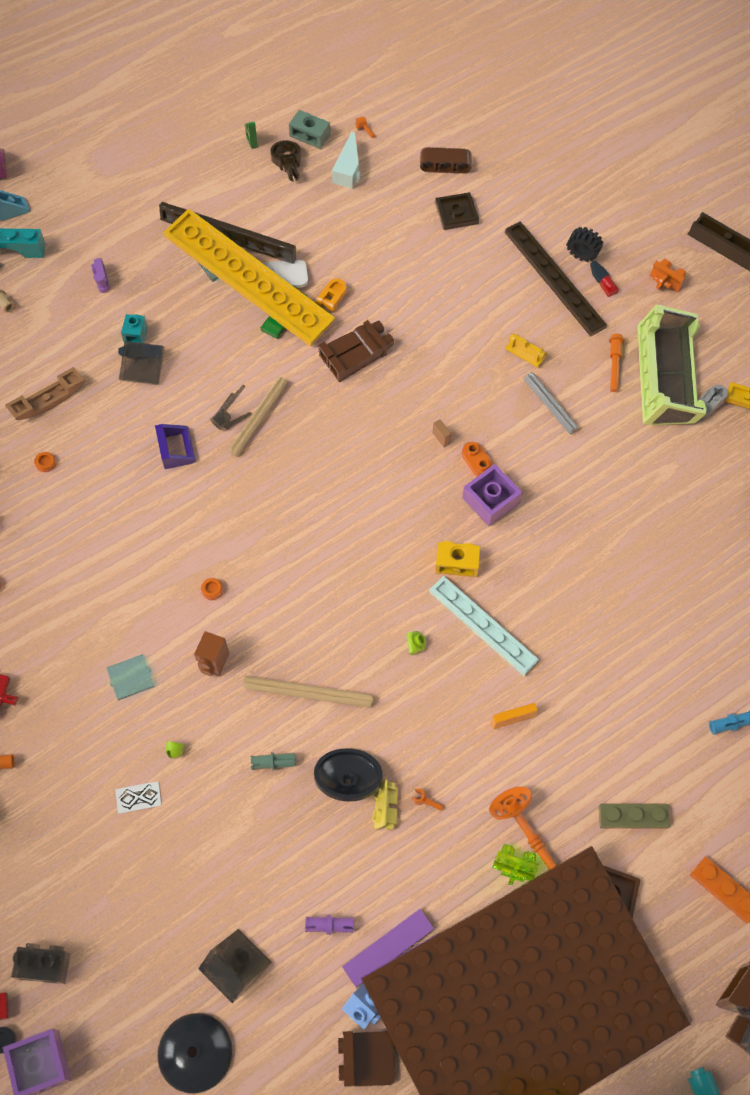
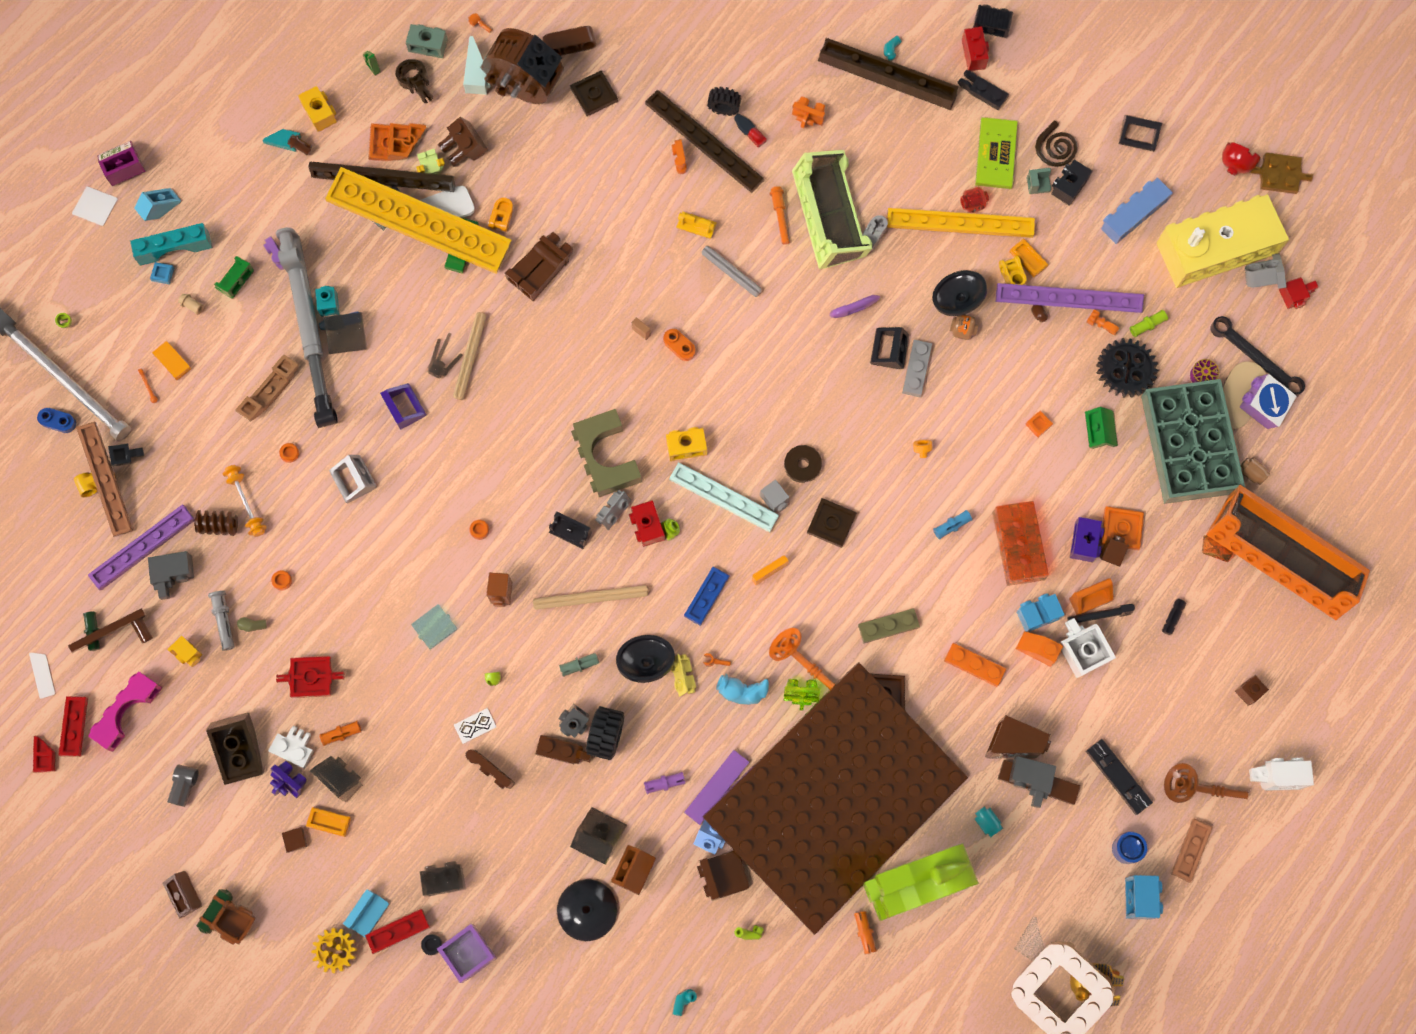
camera: 15 degrees left, 10 degrees up
(54, 289) = (235, 278): none -> green hinge
(107, 501) = (360, 474): none -> light grey tile
(114, 283) = (293, 262): none -> light grey piece
(136, 849) = (488, 768): none -> reddish brown hinge
(145, 181) = (280, 139): none -> teal tile
(158, 187) = (299, 144): none -> reddish brown pin
(186, 161) = (322, 117): none -> yellow brick
(224, 853) = (561, 750): none -> reddish brown hinge
(249, 206) = (393, 140): none -> orange slope
(252, 816) = (576, 715): none -> dark grey brick
(262, 1019) = (634, 870): none -> dark orange brick
(277, 229) = (430, 163): none -> yellowish green piece
(277, 845) = (605, 733): none -> black tyre
(307, 614) = (570, 530): none -> black hinge
(320, 221) = (467, 139): none -> reddish brown brick
(360, 571) = (588, 434): none -> olive arch
(366, 602) = (608, 516): none -> light grey hinge
(392, 630) = (647, 523): none -> red brick
(394, 163) = (522, 66): none -> reddish brown piece
(435, 725) = (706, 596): none -> blue tile
(442, 843) = (737, 692): none -> medium azure animal
(491, 495) = (701, 376): medium lavender brick -> none
(526, 284) = (680, 161): none -> orange plate
(539, 638) = (774, 496): none -> light grey brick
(587, 605) = (806, 453): none -> dark brown tile
(595, 684) = (831, 522): none -> dark brown tile
(672, 468) = (854, 307): none -> medium lavender piece
(710, 523) = (898, 349): none -> black tile
(716, 630) = (923, 447): none -> light orange tile
(726, 547) = (917, 368): none -> light grey plate

